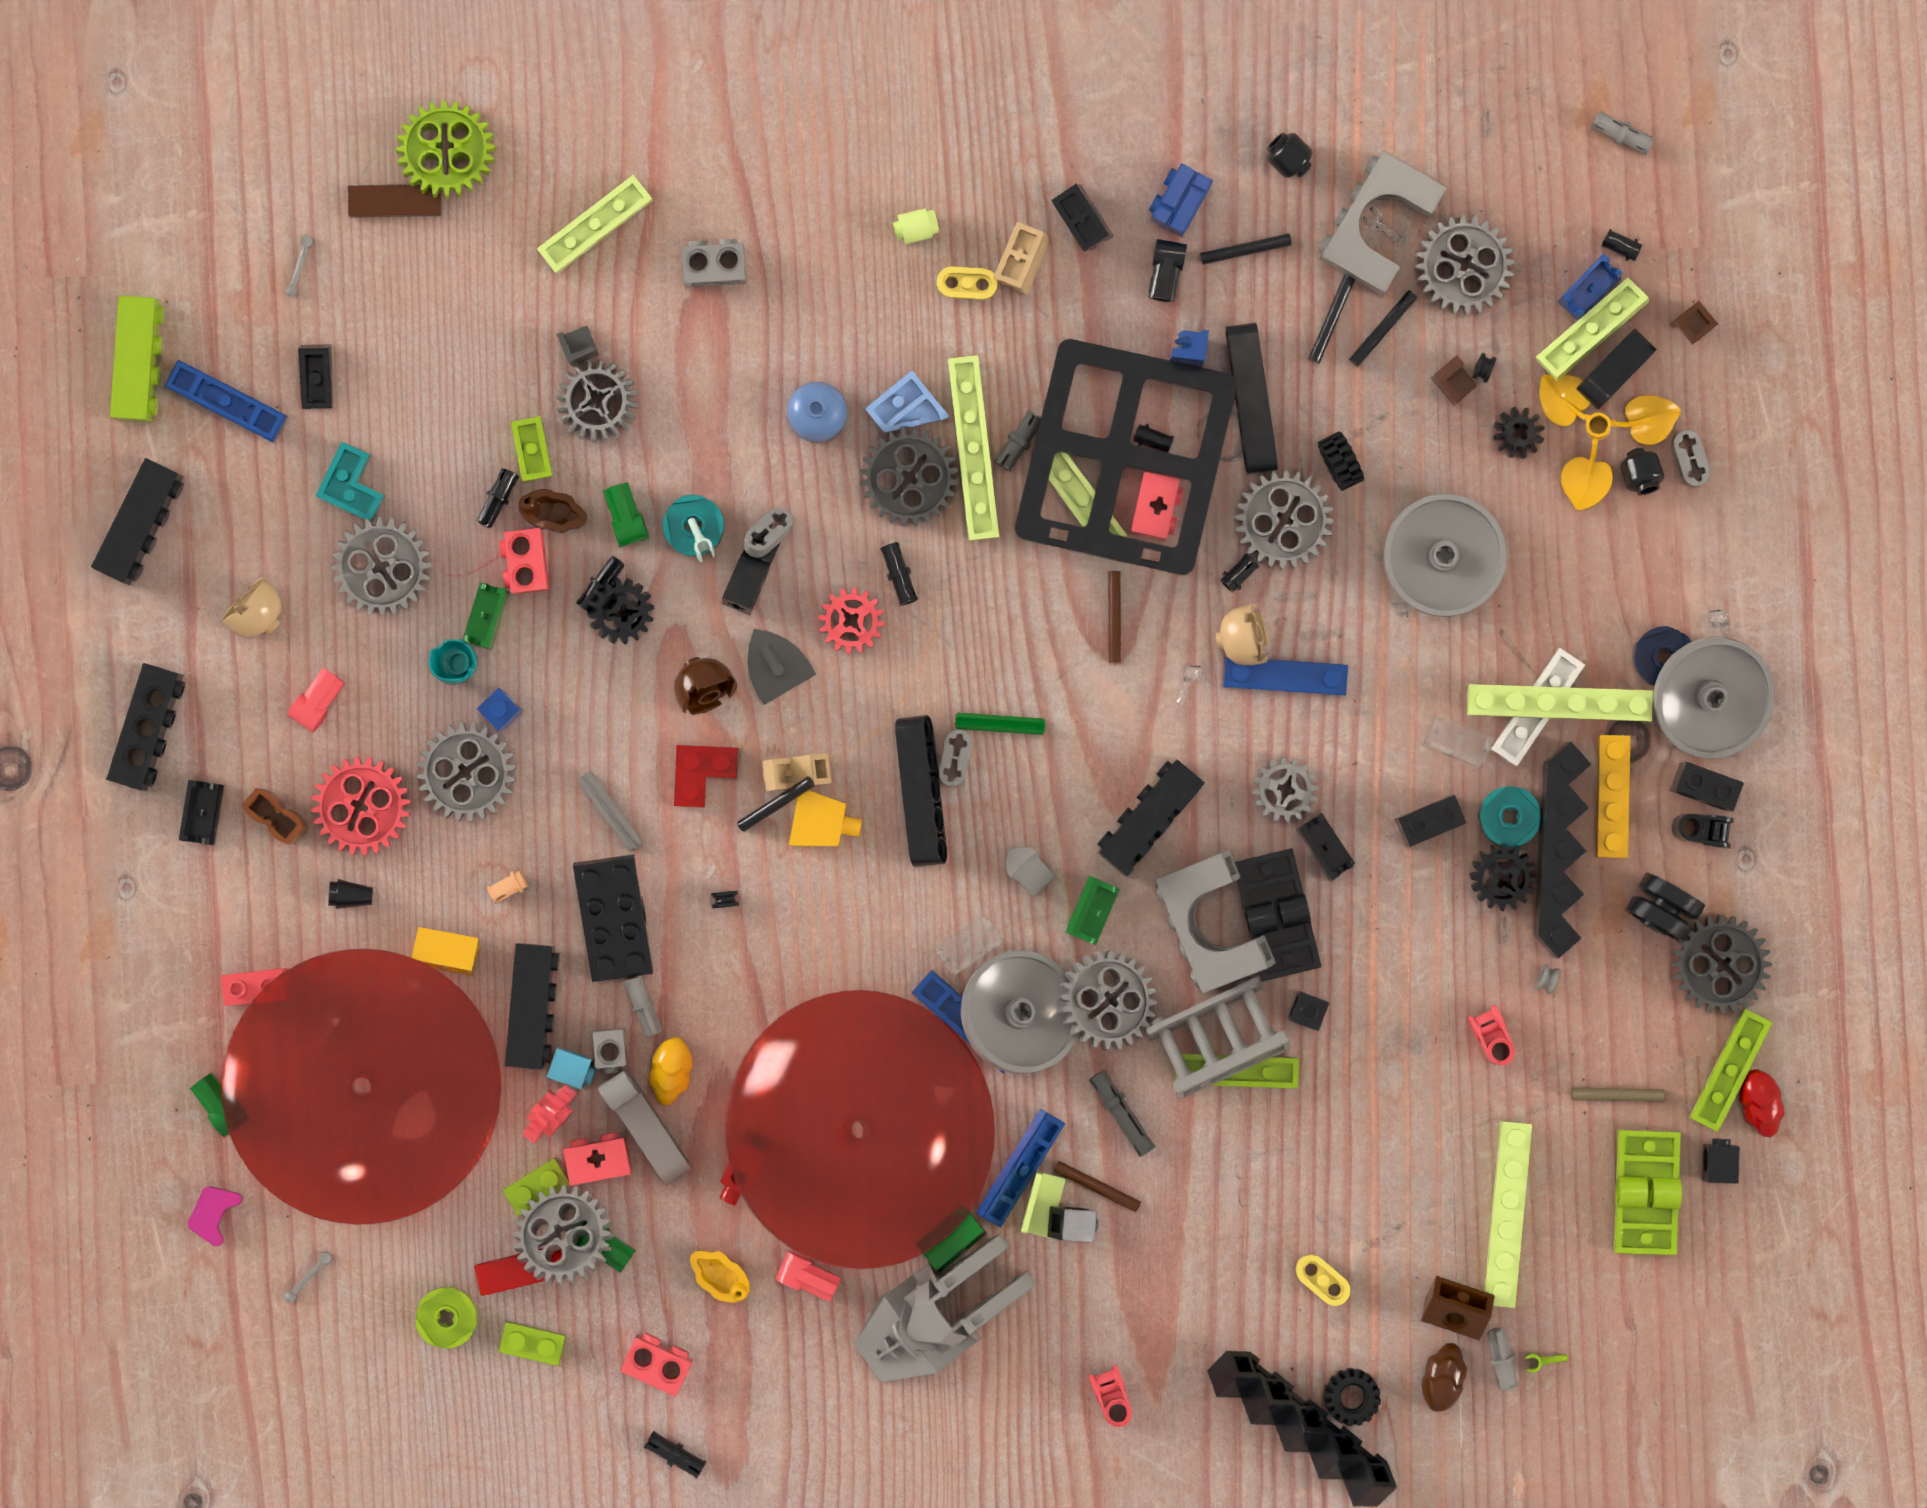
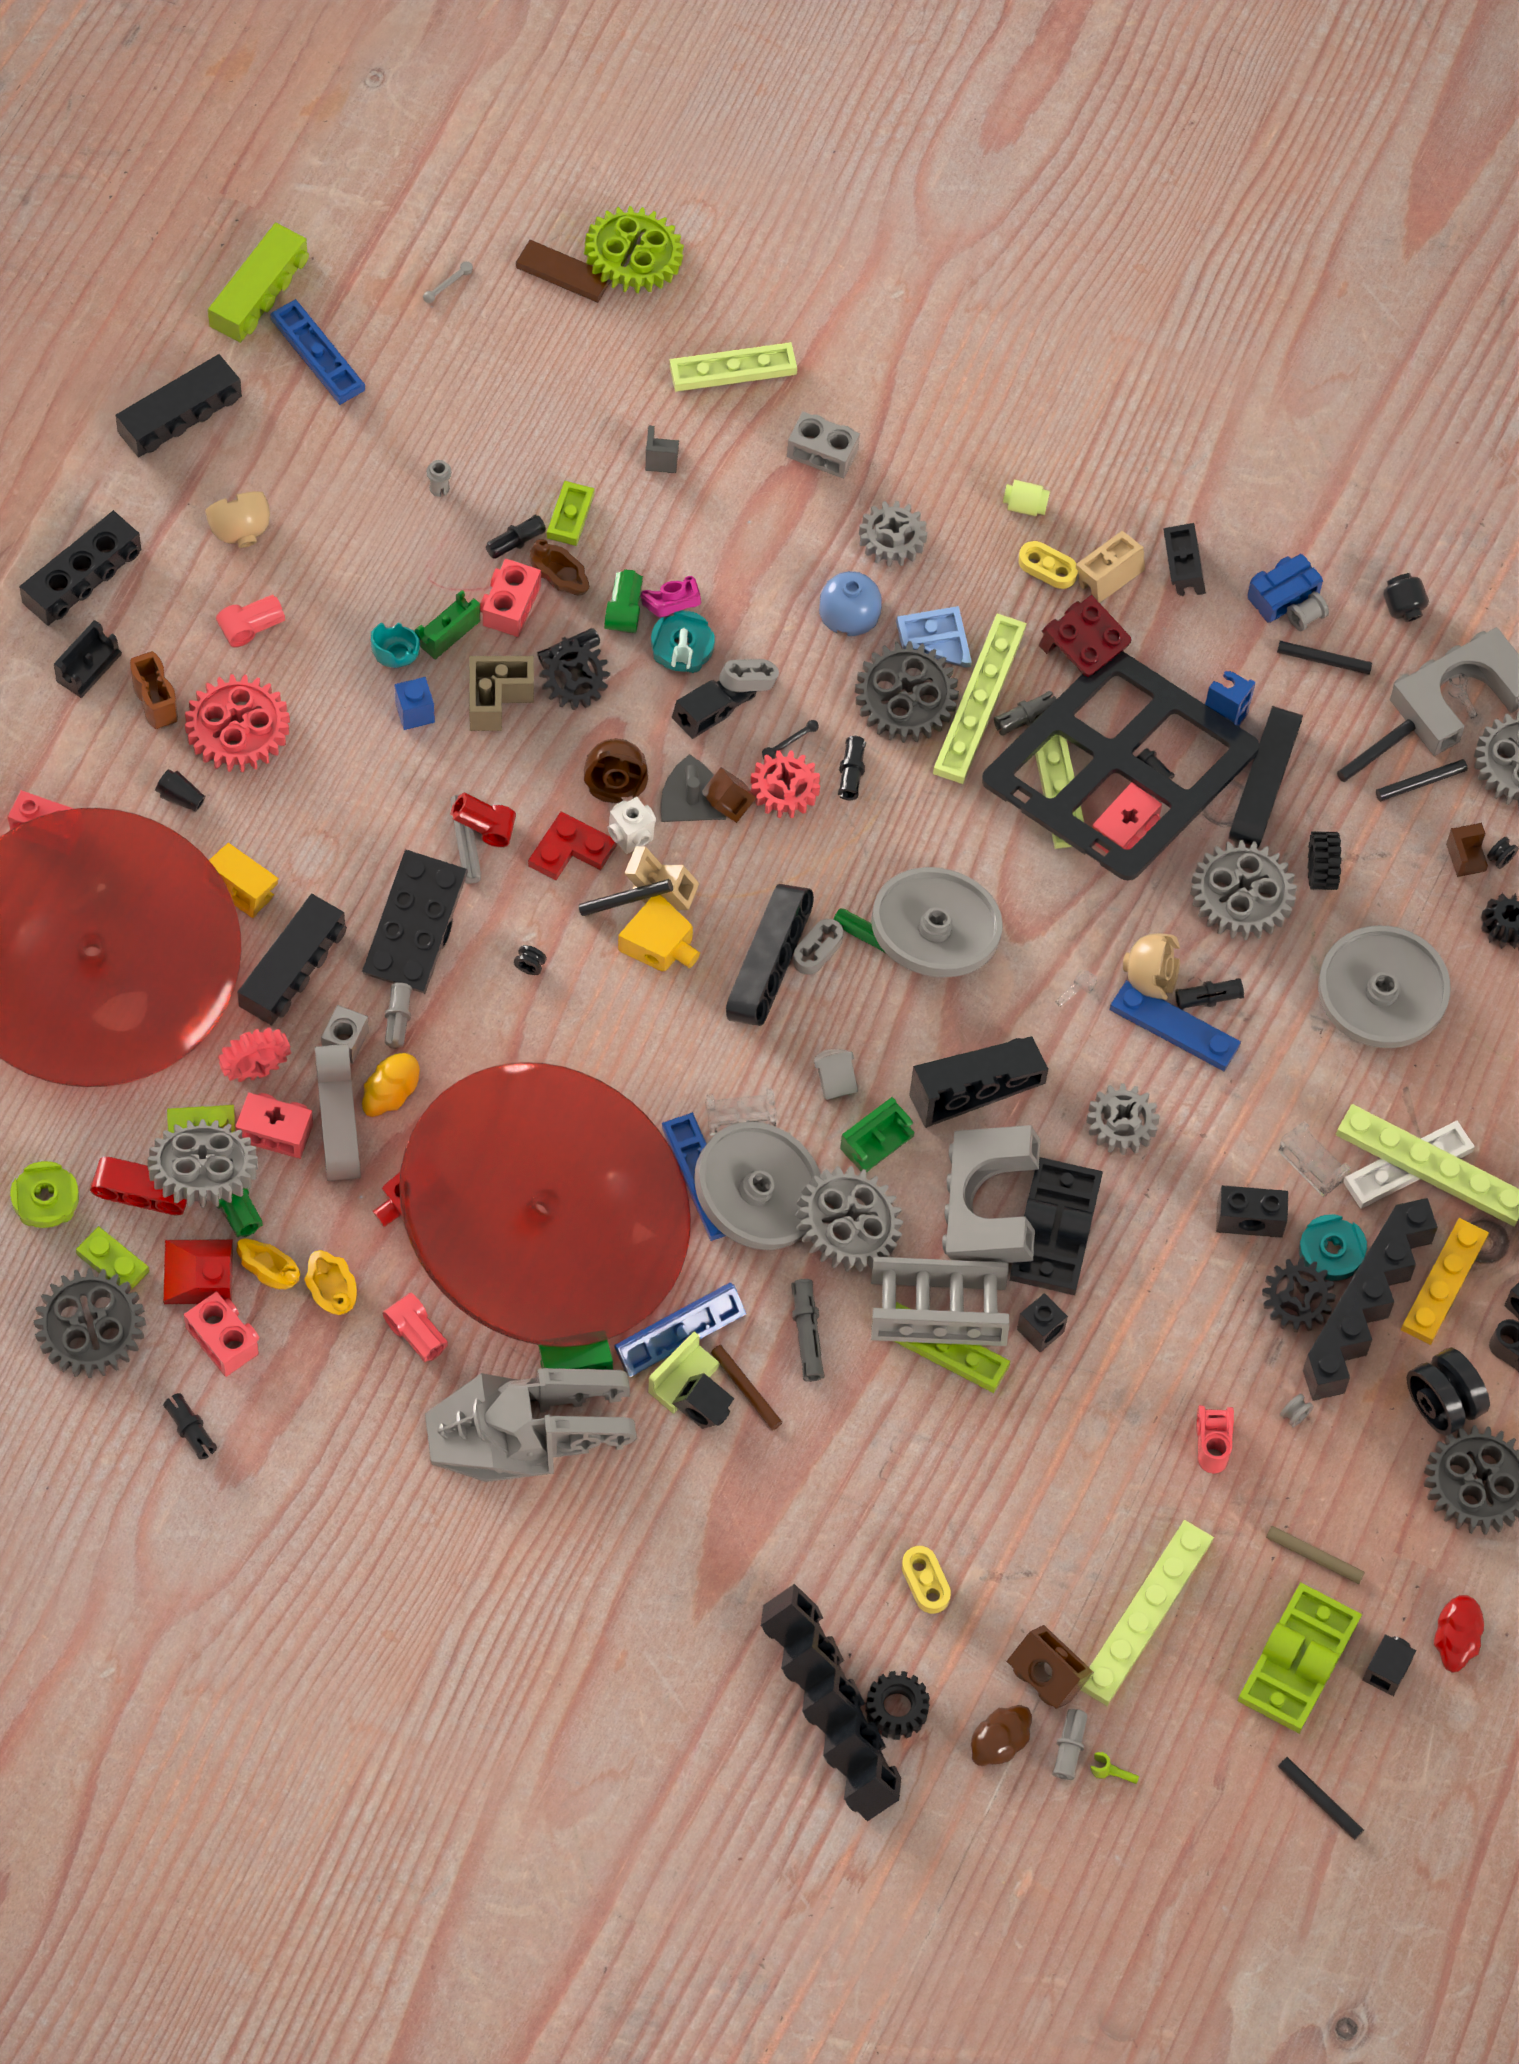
camera: 20 degrees right, 25 degrees down
(316, 376) = (410, 370): black slope -> none
(341, 484) = (382, 463): teal plate -> none
(356, 579) = (347, 540): light grey gear -> none
(393, 475) = (439, 475): none -> light grey pin
(451, 748) = (355, 765): light grey gear -> none
(508, 886) = (331, 854): light nougat pin -> none
(555, 659) = (495, 682): none -> dark tan brick
(567, 1392) = (118, 1314): none -> dark grey gear
(571, 1068) = (300, 1031): medium azure brick -> none
(606, 1316) = (197, 1270): none -> red slope
(609, 393) = (671, 494): light grey gear -> none
(623, 789) = (492, 821): none -> red piece
(660, 1284) = (268, 1264): none -> yellow arm
(664, 488) = (672, 597): none -> dark pink piece
(752, 739) = (631, 824): none -> white brick
(805, 336) = (892, 534): none -> light grey gear
(809, 655) = (728, 794): none -> reddish brown panel
(821, 593) = (812, 726): none -> black hinge
(1036, 344) = (1086, 636): none -> dark red bracket
(1045, 690) = (936, 922): none -> light grey dish
(1111, 1394) = (654, 1580): coral piece -> none
(1114, 605) = (1036, 900): reddish brown bar -> none
(1167, 264) = (1244, 632): black piece -> none
(1211, 213) = (1307, 611): none -> light grey bush
(1239, 573) = (1176, 916): black pin -> none
(1300, 632) = (1227, 991): none -> black pin
(1325, 847) = (1135, 1188): black hinge -> none
(1716, 1299) = (1321, 1798): none -> black bar
(1730, 1070) = (1441, 1583): lime plate -> none

